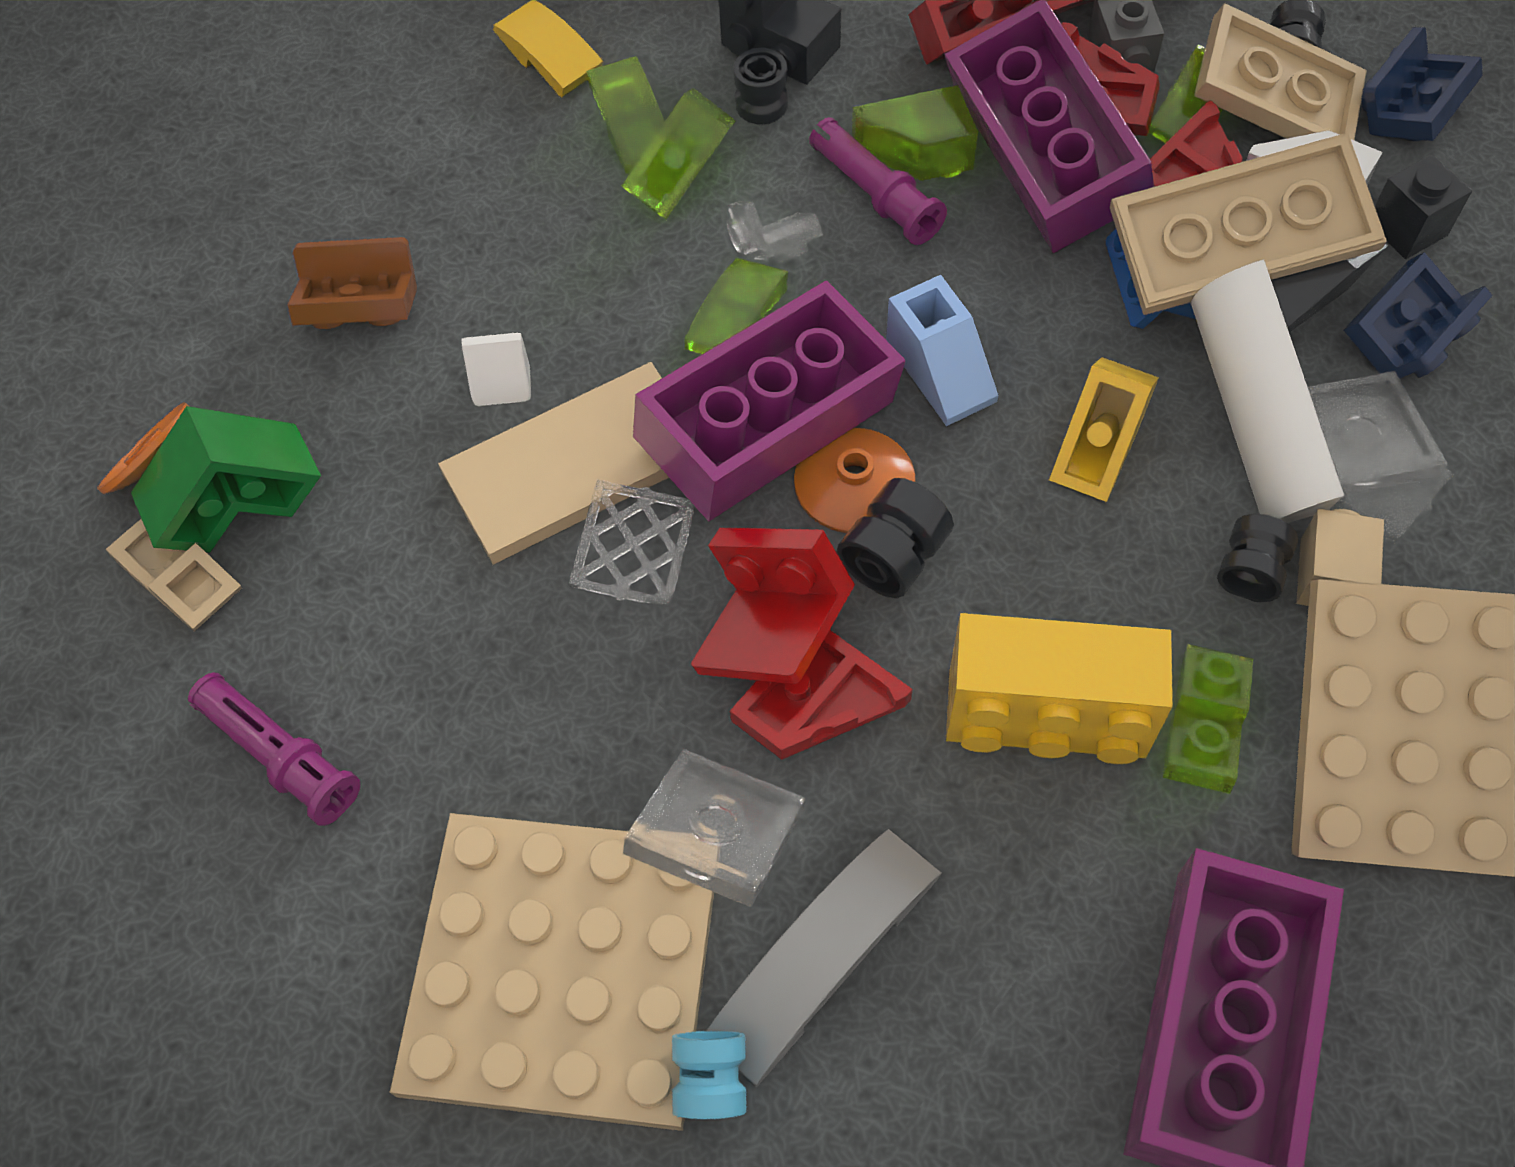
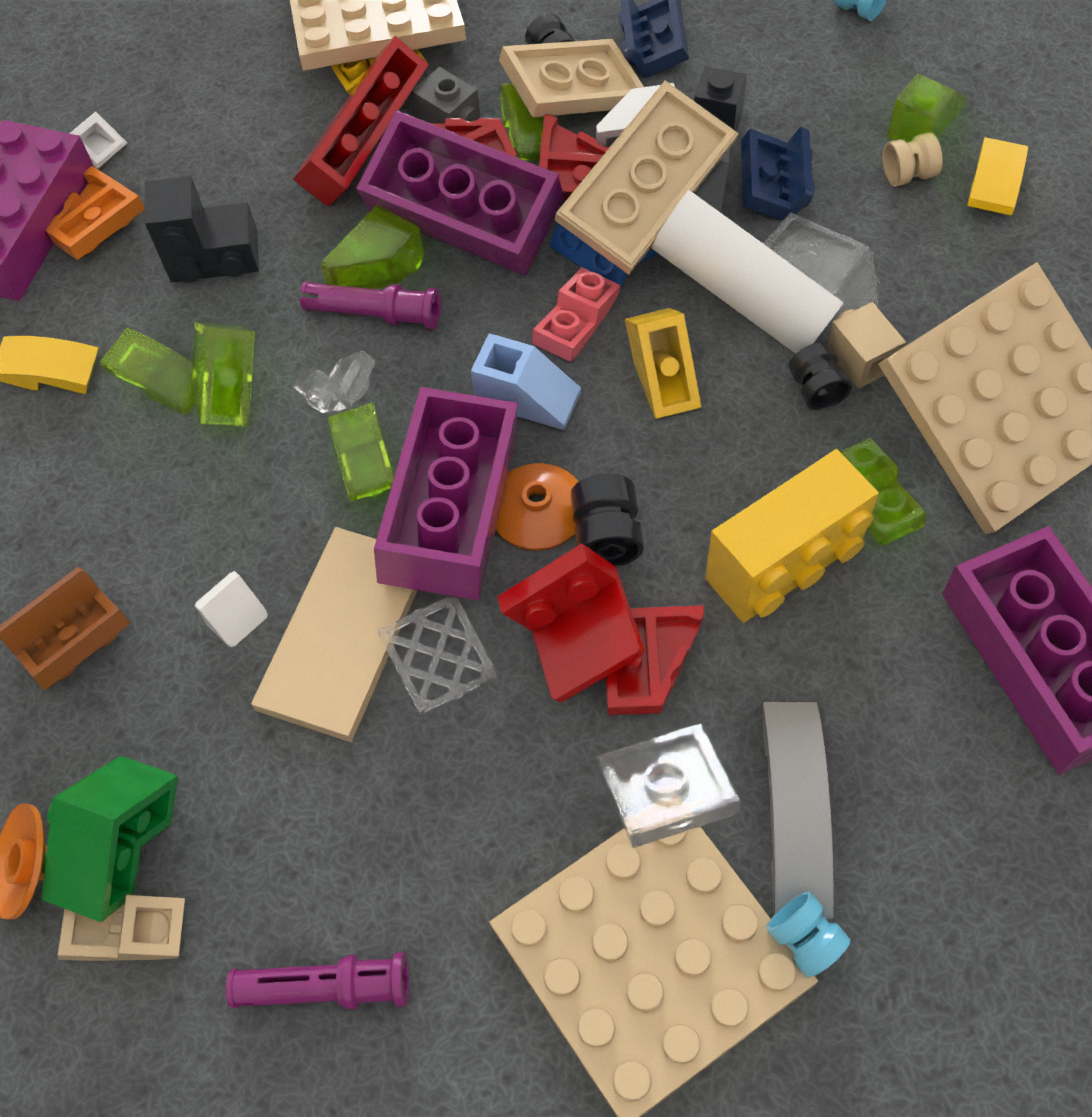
camera: 40 degrees left, 0 degrees up
(760, 85) = (234, 291): black wheel -> none
(1075, 321) = (578, 313): none -> coral slope

